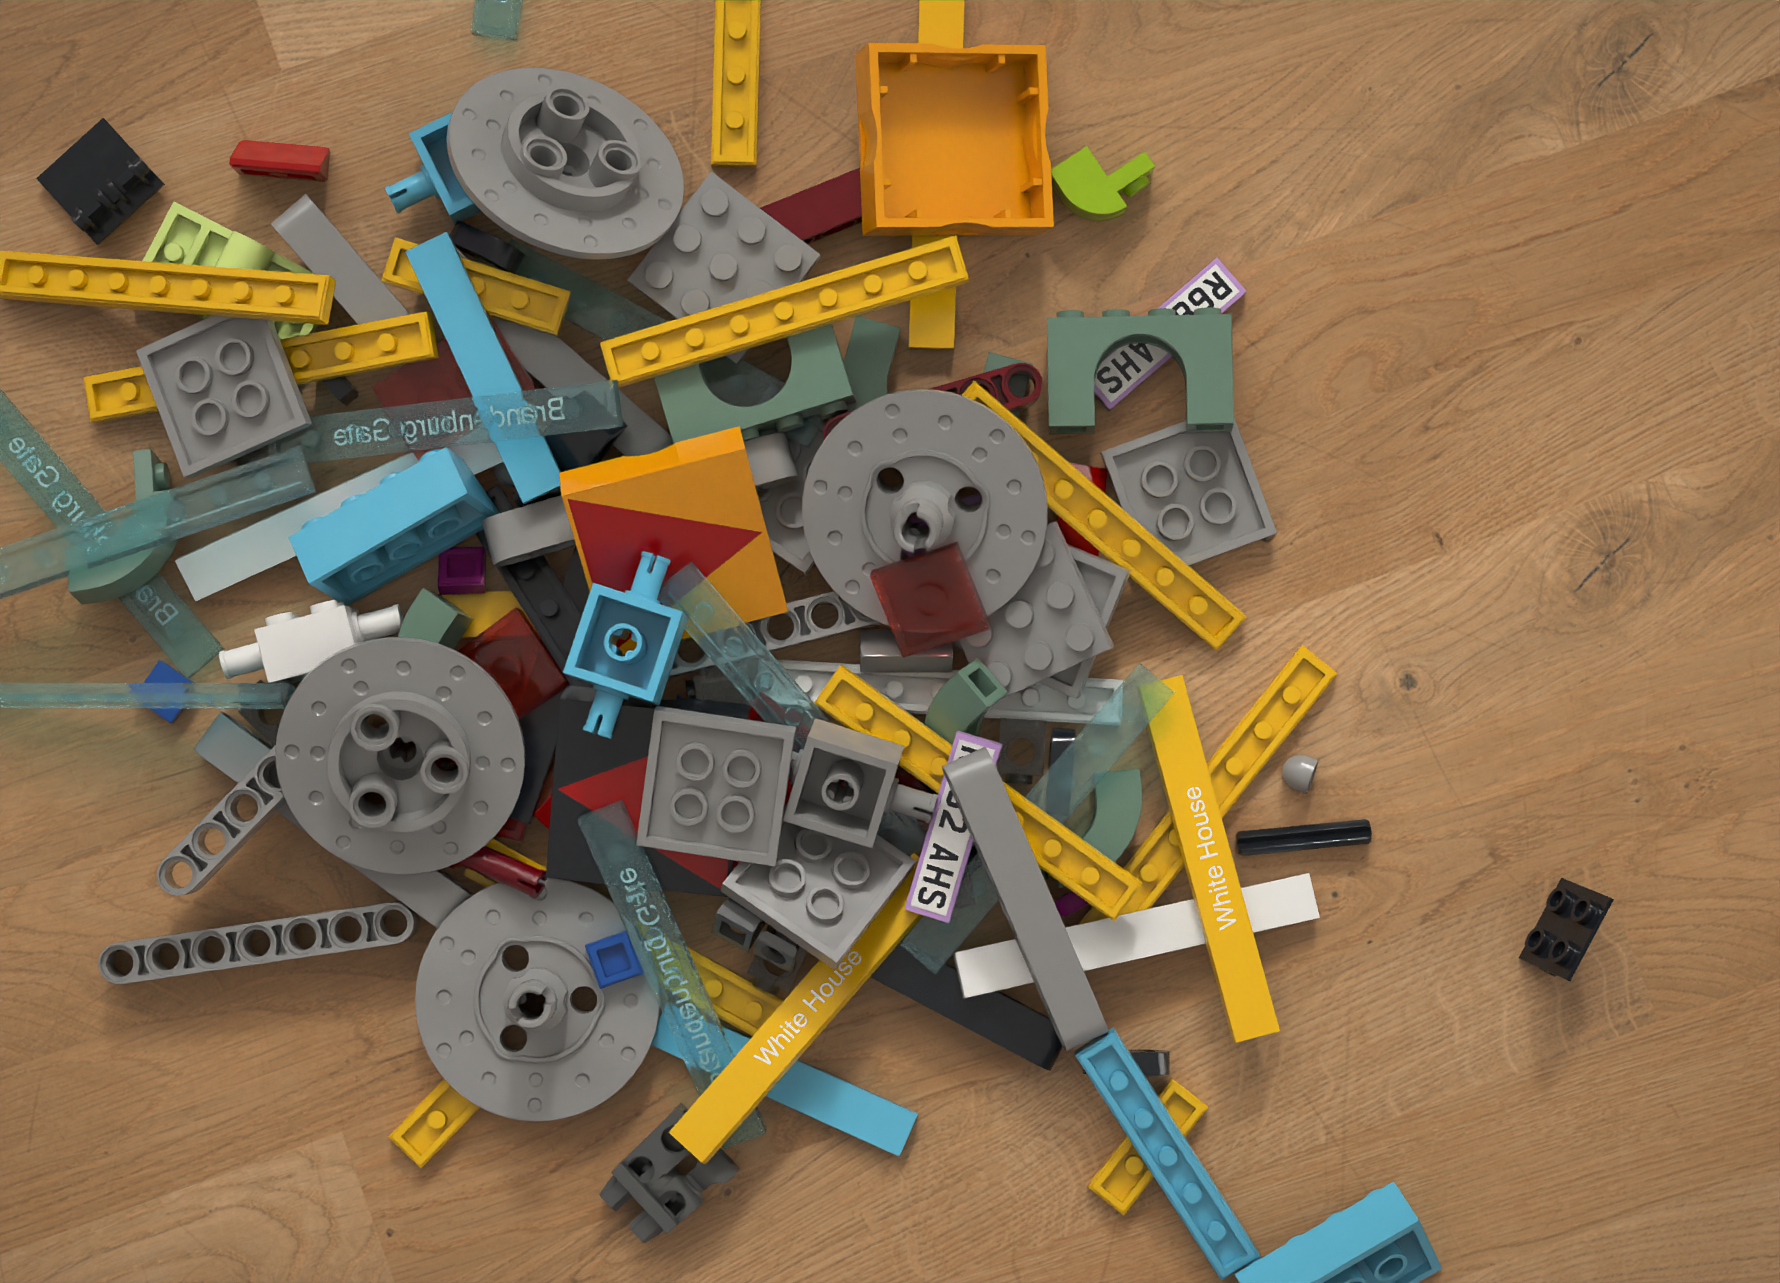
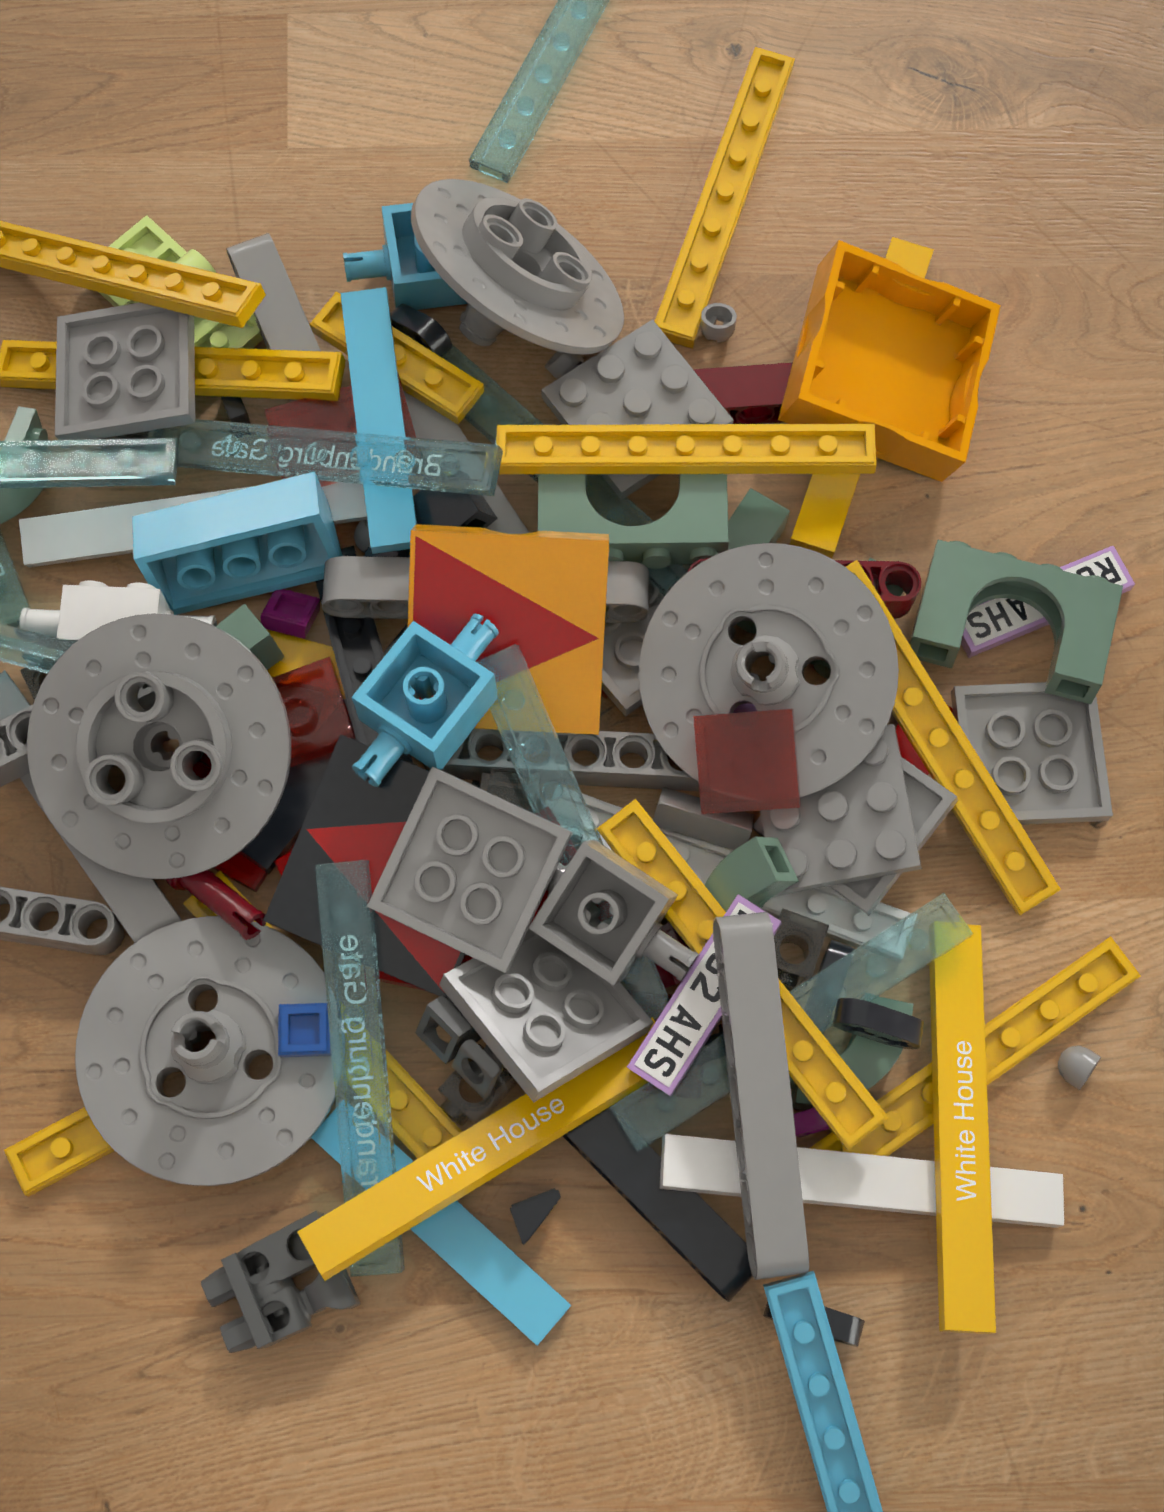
camera: 15 degrees right, 15 degrees down
(100, 181) = (88, 186): black hinge -> none
(281, 160) = (256, 217): red slope -> none
(764, 137) = (719, 312): none -> light grey hinge
(860, 1048) = (532, 1212): none -> black slope
(1092, 193) = (1012, 456): lime brick -> none
(1111, 802) = (878, 1023): none -> black beam
(1125, 1172) = (780, 1442): yellow tile -> none
(1303, 837) = (1065, 1135): black axle -> none

